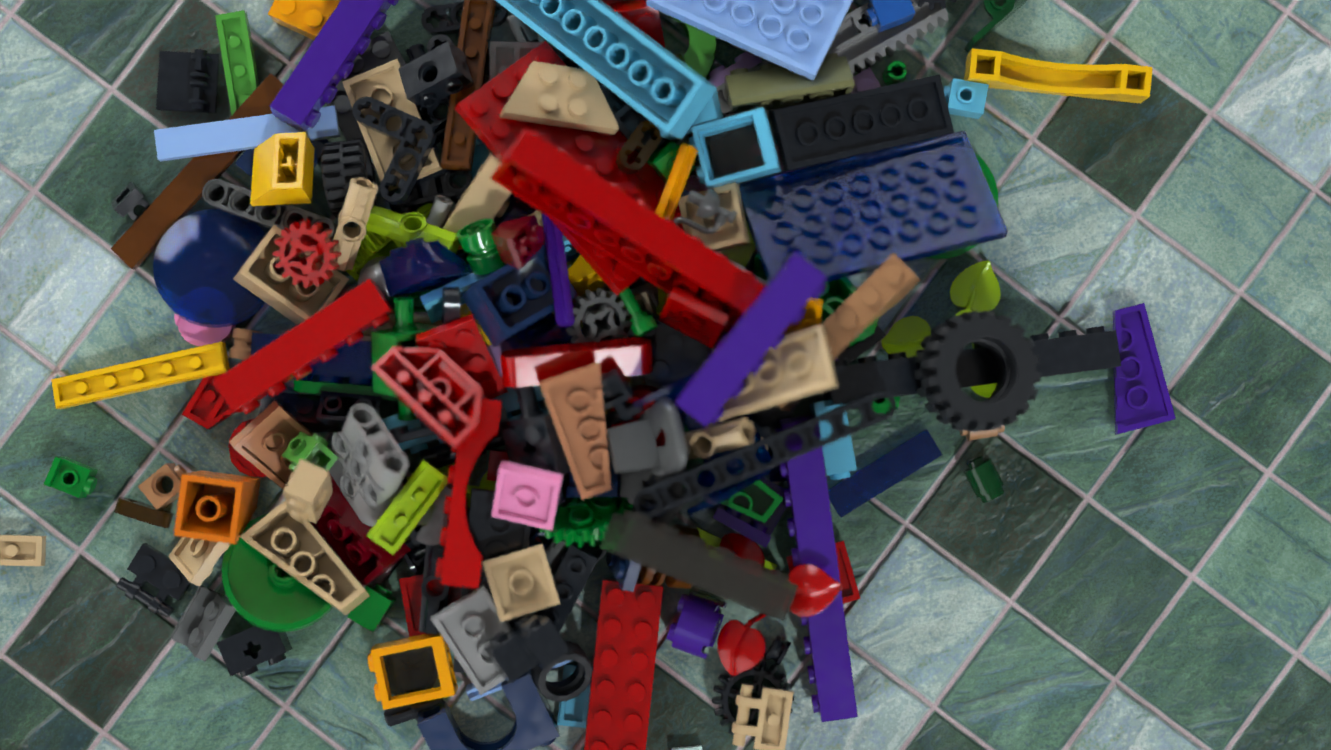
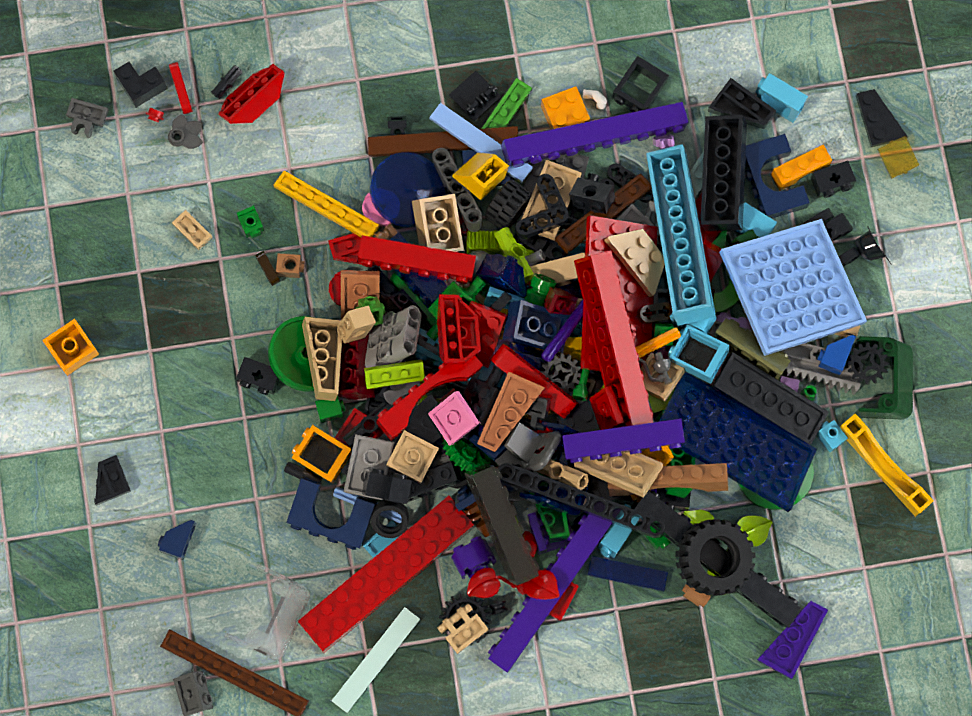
camera: 35 degrees right, 10 degrees down
(159, 571) = (248, 303): black plate -> none
(197, 557) = (279, 307): tan plate -> none
(203, 622) = (246, 342): dark grey bracket -> none
(215, 505) = (306, 293): orange slope -> none
(312, 266) = (454, 228): red gear -> none
(357, 209) = (499, 220): tan piece -> none
(984, 479) = (673, 620): dark green brick -> none

